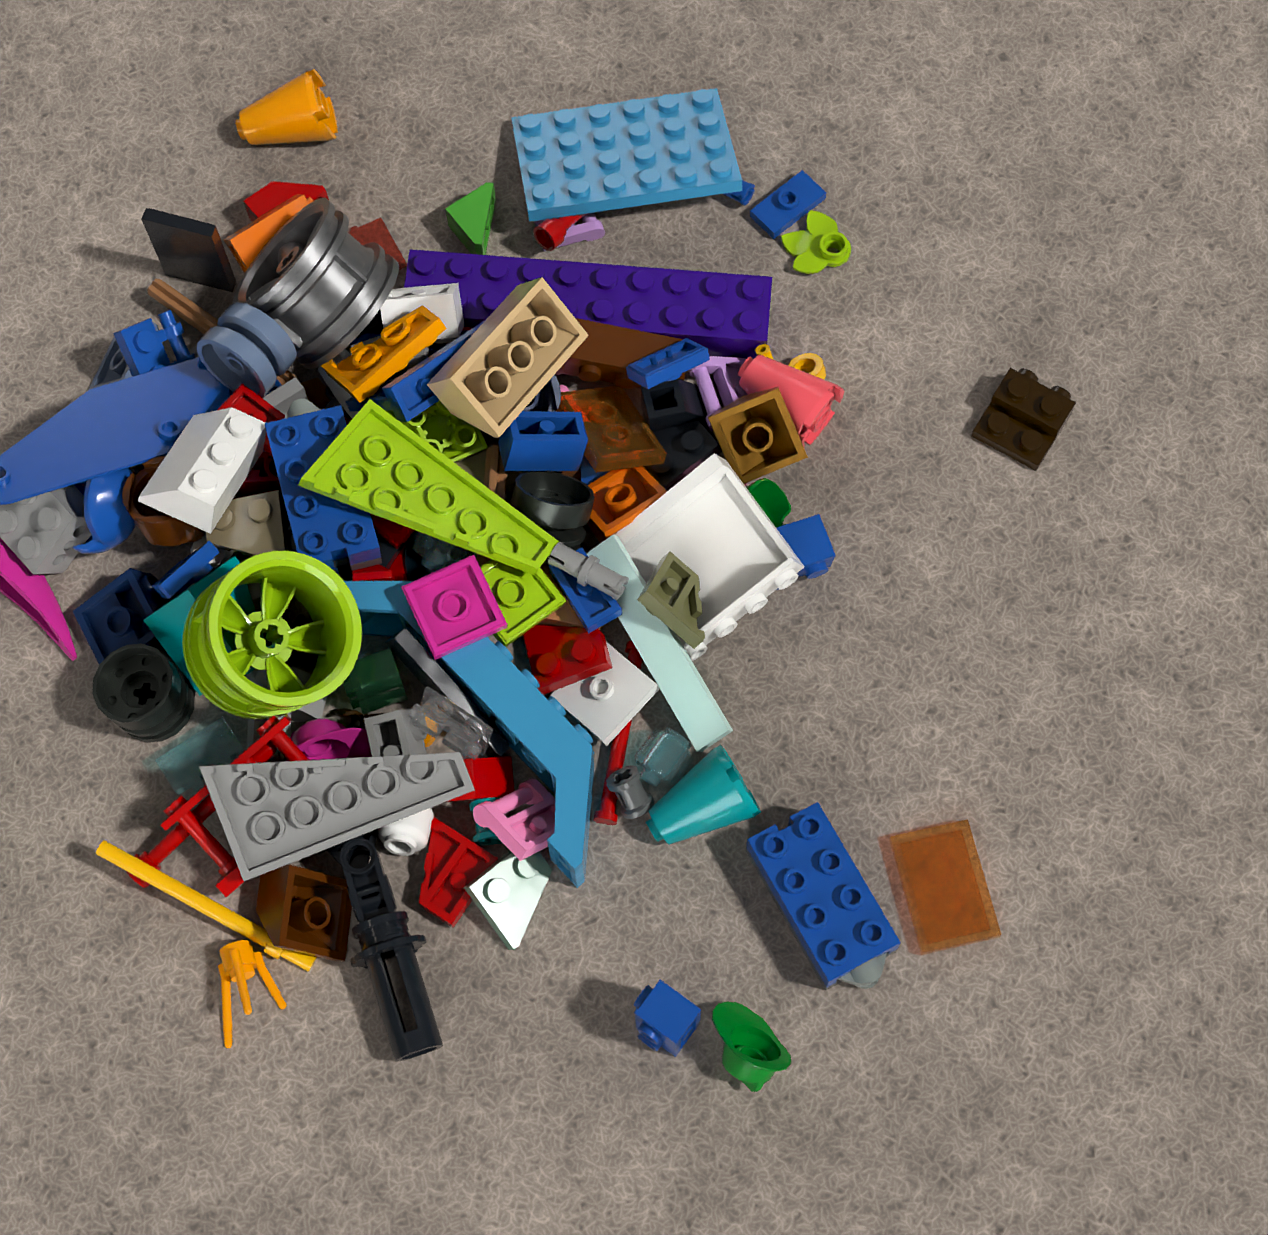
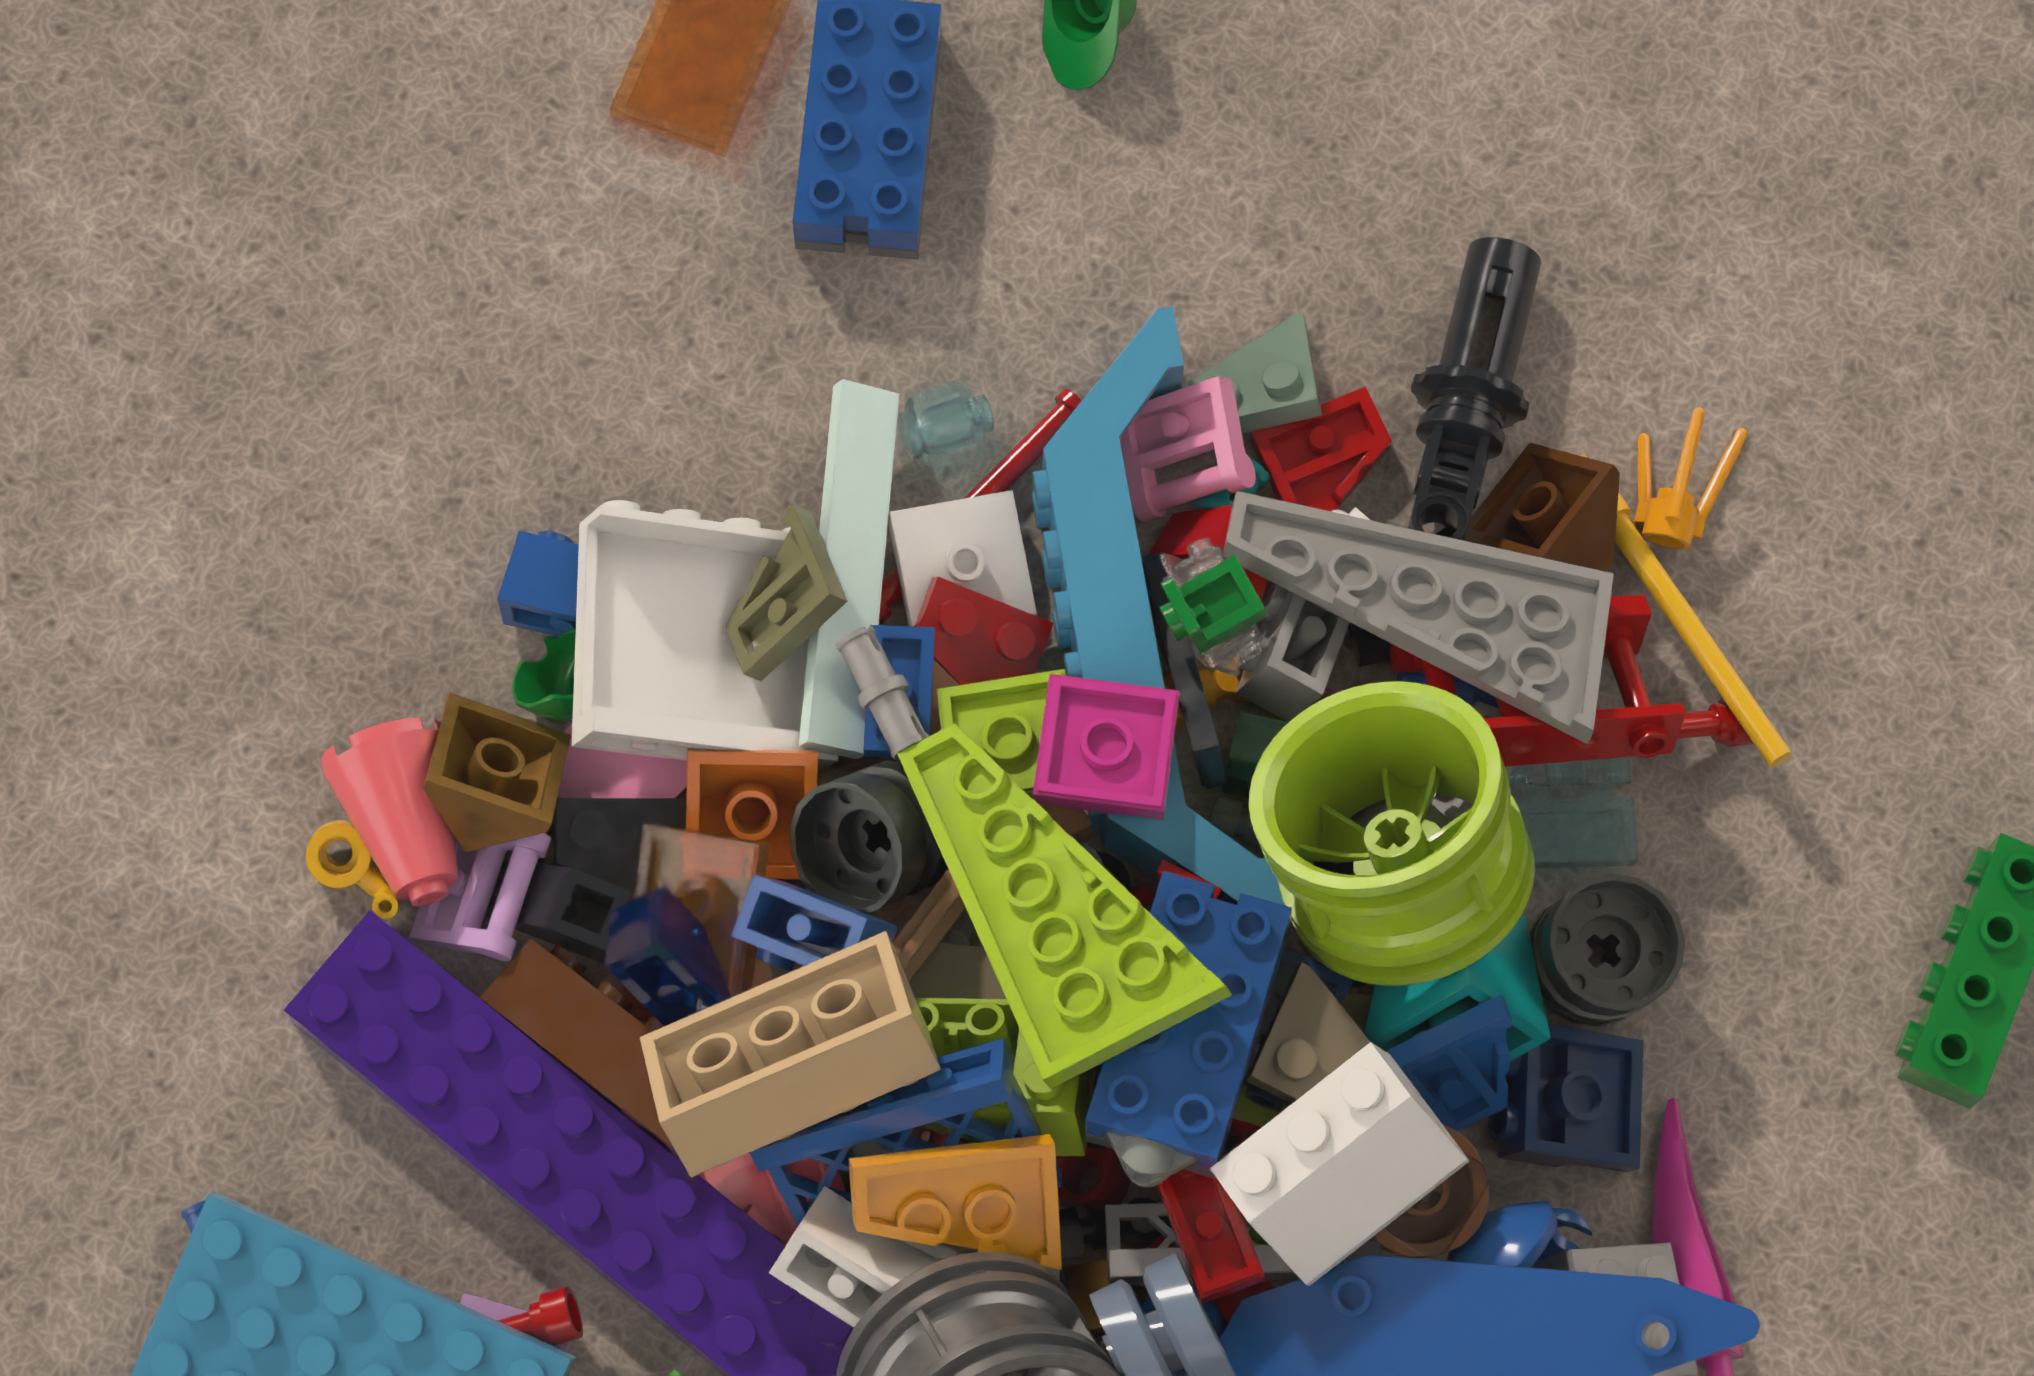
camera: 150 degrees left, 5 degrees up
(445, 709) = (1212, 605): none -> green bracket
(608, 395) = (664, 957): none -> clear blue slope
(630, 792) = (1021, 405): dark grey bush -> none
(665, 1018) = (1171, 90): blue brick -> none
(667, 363) = (543, 953): blue plate -> none
(703, 800) = (932, 330): teal cone -> none
(787, 204) = (151, 1158): blue plate -> none
(812, 244) = (168, 1067): lime plate -> none
(1024, 417) = (90, 586): dark brown plate -> none

